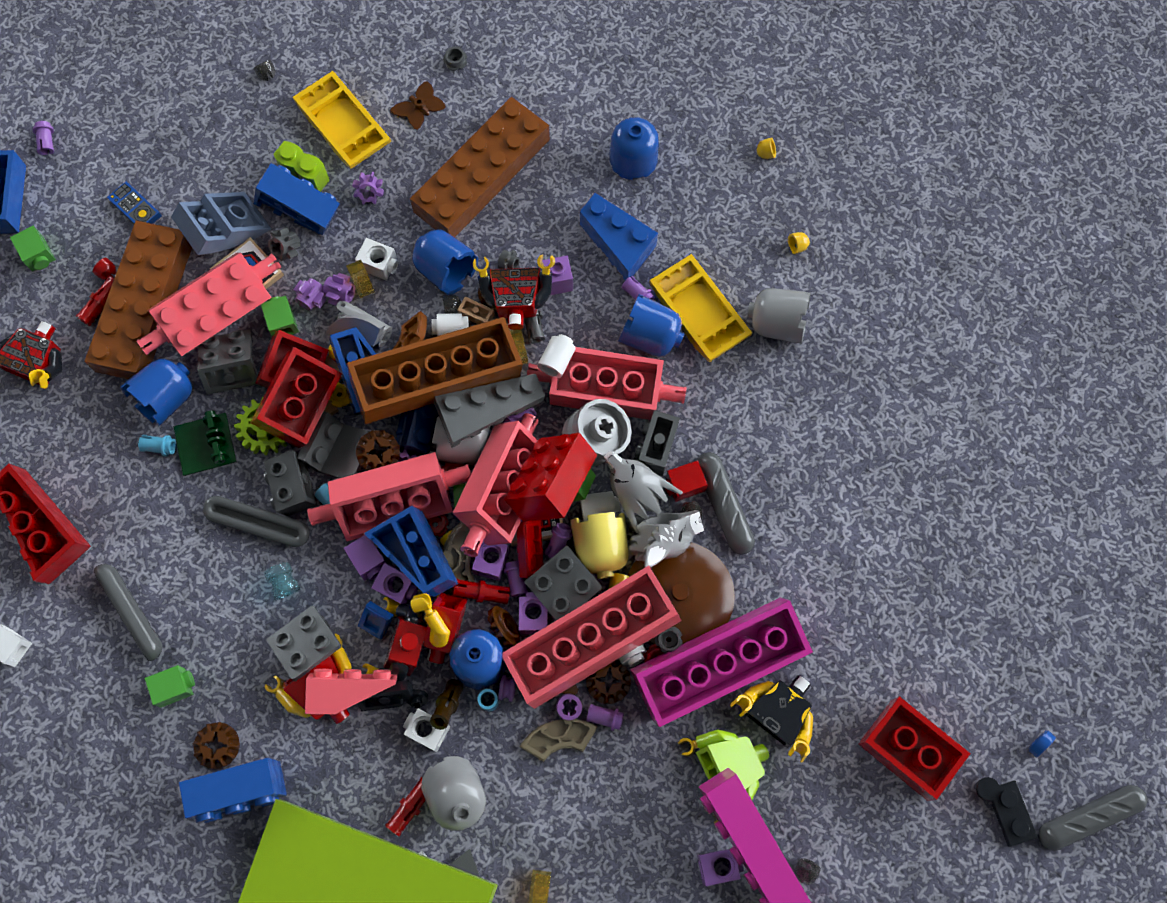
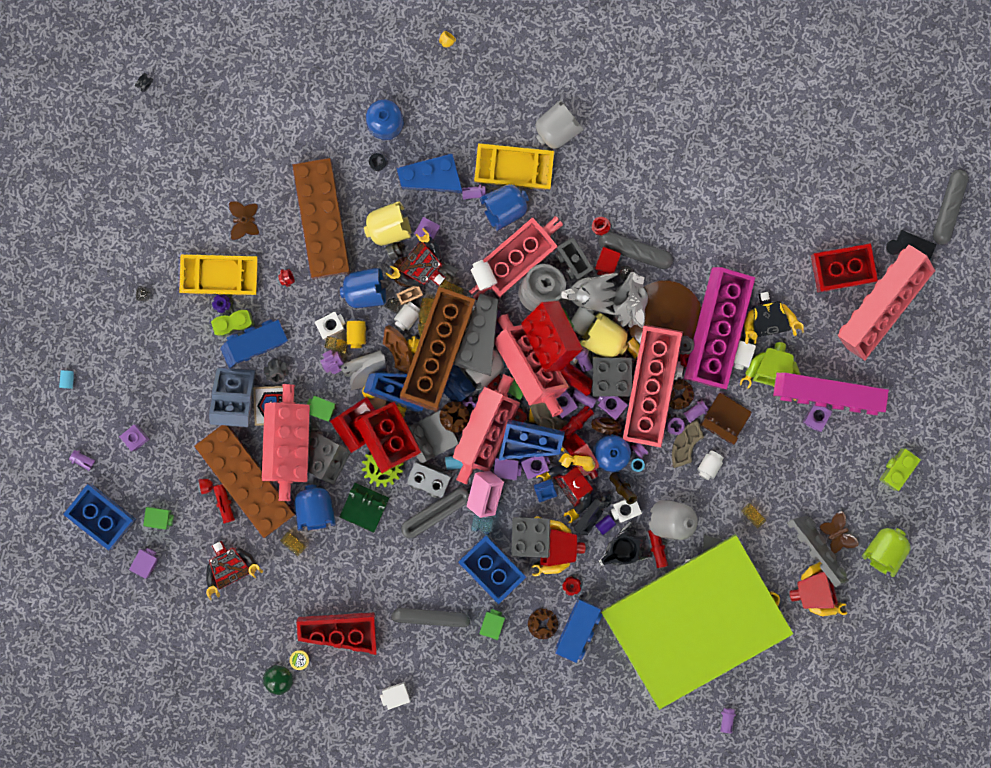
camera: 50 degrees left, 15 degrees up
(104, 165) = (134, 438): none -> medium lavender brick
(106, 402) = (293, 543): none -> clear yellow piece
(119, 66) = (66, 379): none -> medium azure hinge
(133, 204) = (174, 439): tile -> none
(163, 445) = (344, 533): medium azure pin -> none
(235, 632) = (492, 569): none -> blue brick
(279, 742) = (571, 591): none -> red plate
(309, 294) = (321, 380): medium lavender gear -> none
(316, 553) = (485, 494): none -> bright pink brick
(318, 150) = (221, 308): none -> dark purple plate
(336, 692) = (574, 538): coral slope -> none
(368, 195) = (279, 295): medium lavender gear -> none
(377, 766) = (625, 548): none -> black piece
(389, 290) = (356, 334): none -> yellow brick
(389, 721) = (605, 524): none -> dark purple hinge
(393, 184) = (286, 277): none -> red plate
(455, 53) = (230, 168): dark grey plate -> none
(530, 231) = (388, 225): none -> light yellow cylinder
(556, 786) = (710, 465): none -> white brick
(590, 173) = (379, 167): none -> black bush
(626, 758) = (725, 418): none -> reddish brown bracket
(714, 715) = (743, 355): none -> white brick
(718, 443) = (597, 222): none -> red plate
(800, 239) = (520, 74): yellow hinge -> none
(807, 871) = (855, 374): clear smoke hinge -> none
(922, 833) = (886, 302): none -> coral brick
(1041, 743) = (895, 199): blue tile -> none

